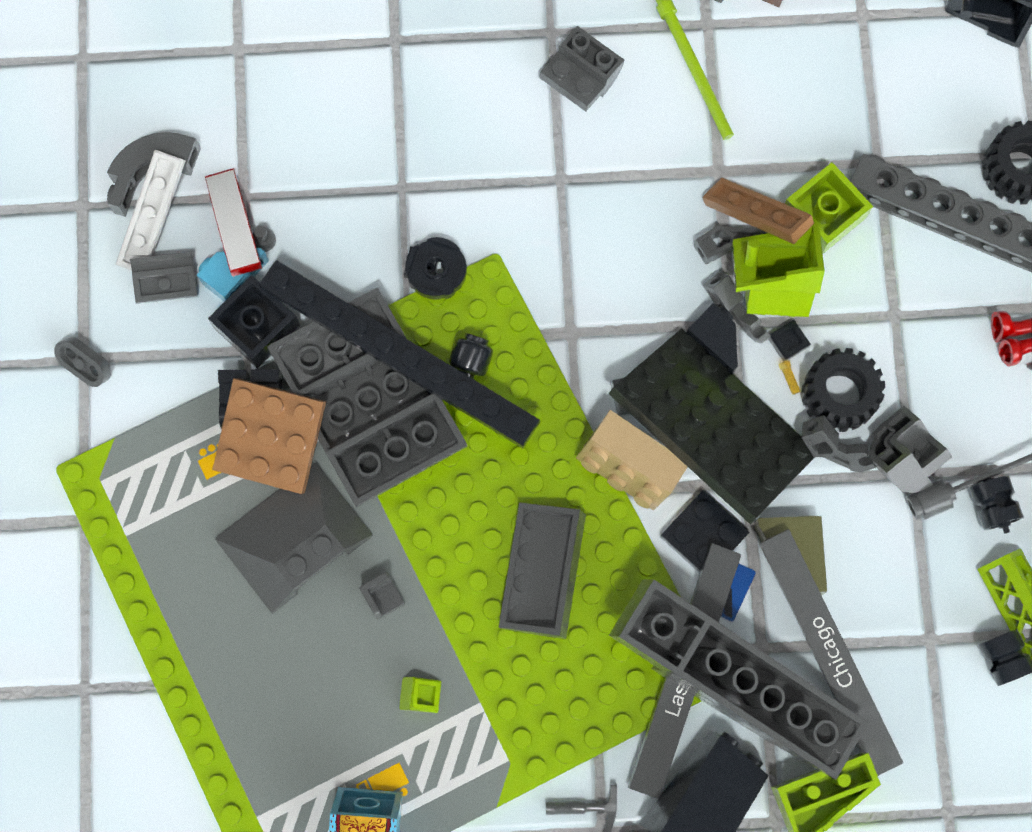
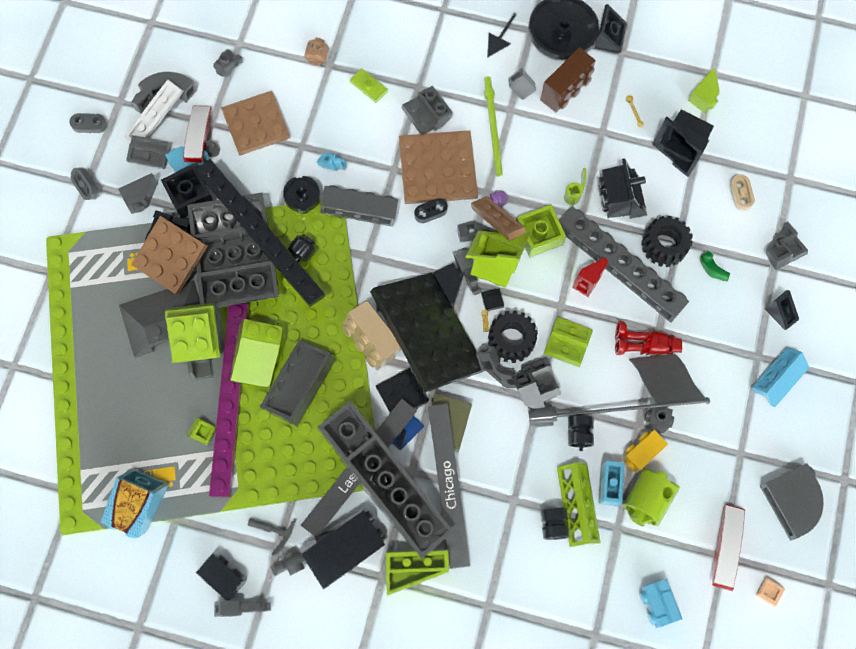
camera: 15 degrees right, 5 degrees down
(47, 262) = (87, 123): none -> dark grey plate
(176, 350) = (139, 193): none -> dark grey slope
(232, 89) = (226, 61): none -> dark grey plate
(315, 174) = (255, 123): none -> medium nougat plate
(357, 547) = (192, 332): none -> lime piece
(370, 26) = (316, 51): none -> medium nougat head
(447, 634) = (227, 410): none -> magenta plate
(463, 546) = (256, 353): none -> lime slope
(465, 200) = (331, 162): none -> medium azure piece
(472, 55) = (368, 85): none -> lime plate
(532, 258) = (359, 205): none -> dark grey brick
(629, 155) = (438, 167): none -> medium nougat plate
(639, 224) = (430, 210): none -> black beam
(743, 174) = (499, 197): none -> medium lavender plate
(858, 122) = (575, 188): none -> lime panel
(927, 369) = (568, 342): none -> lime slope
(930, 107) = (622, 192): none -> black piece
(931, 259) = (589, 277): none -> red tile

